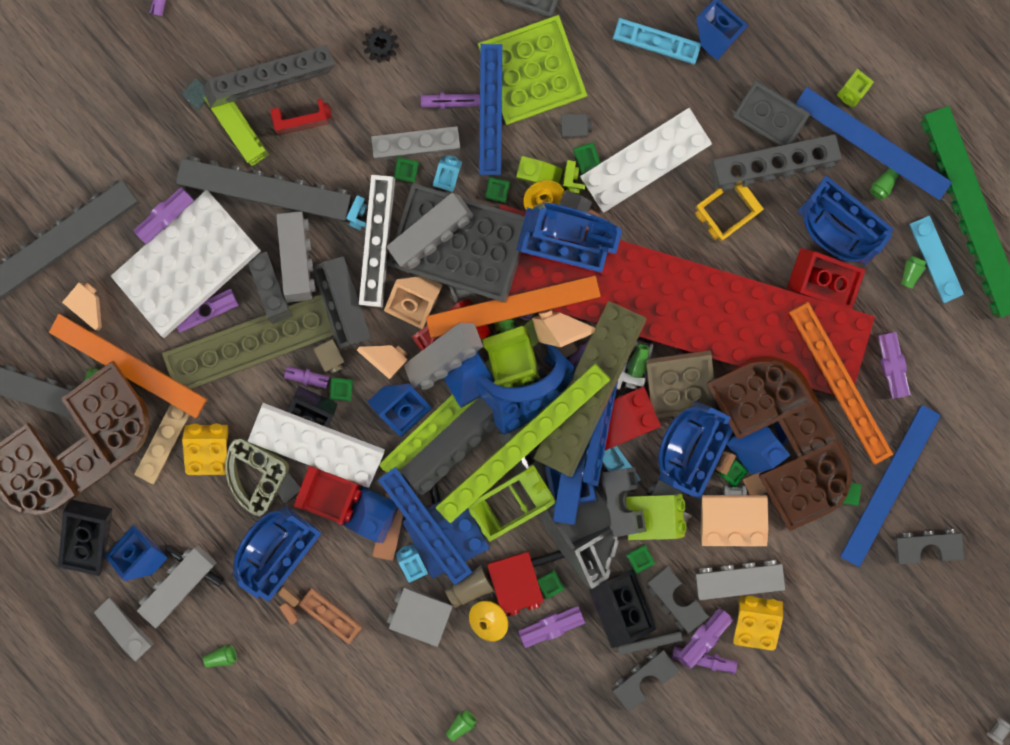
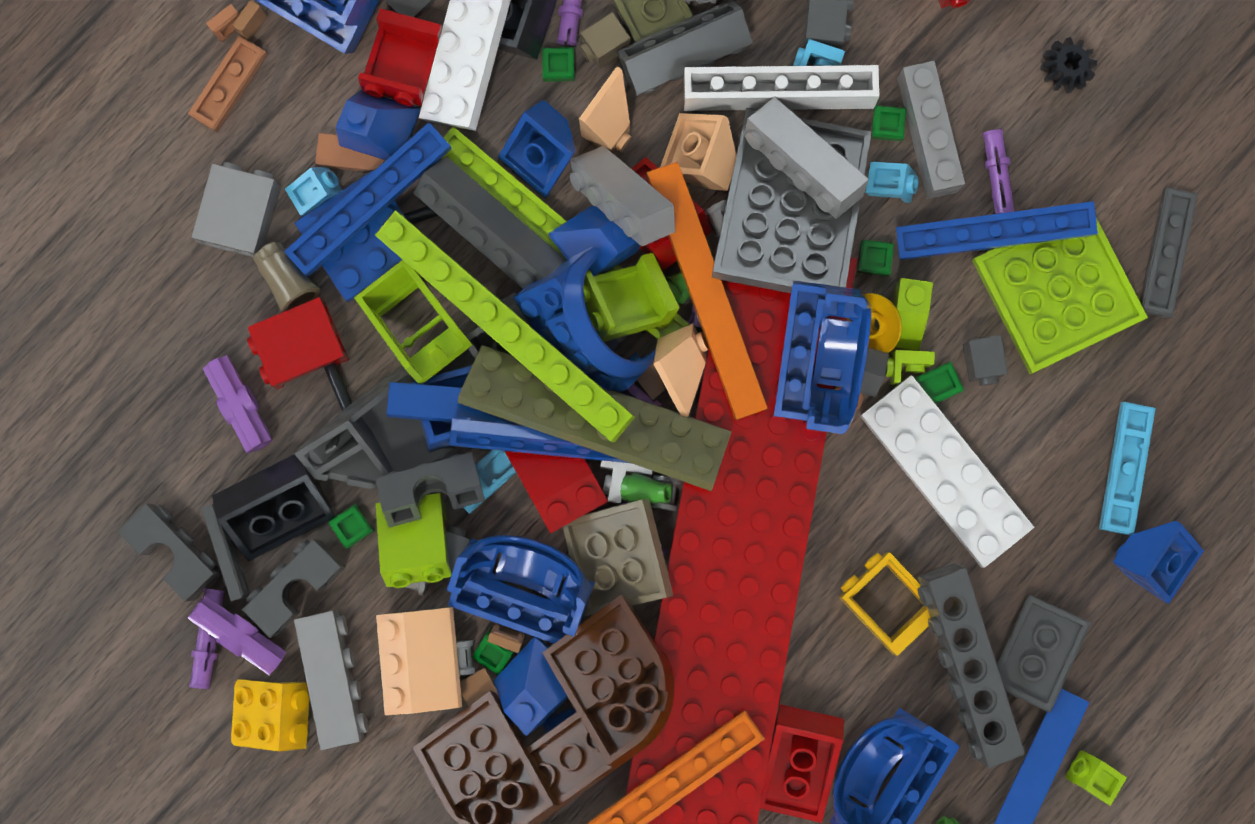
camera: 85 degrees right, 5 degrees down
(462, 724) = (83, 289): bright green cone -> none
(493, 616) = (237, 310): yellow dish -> none
(550, 584) = (301, 396): green tile -> none

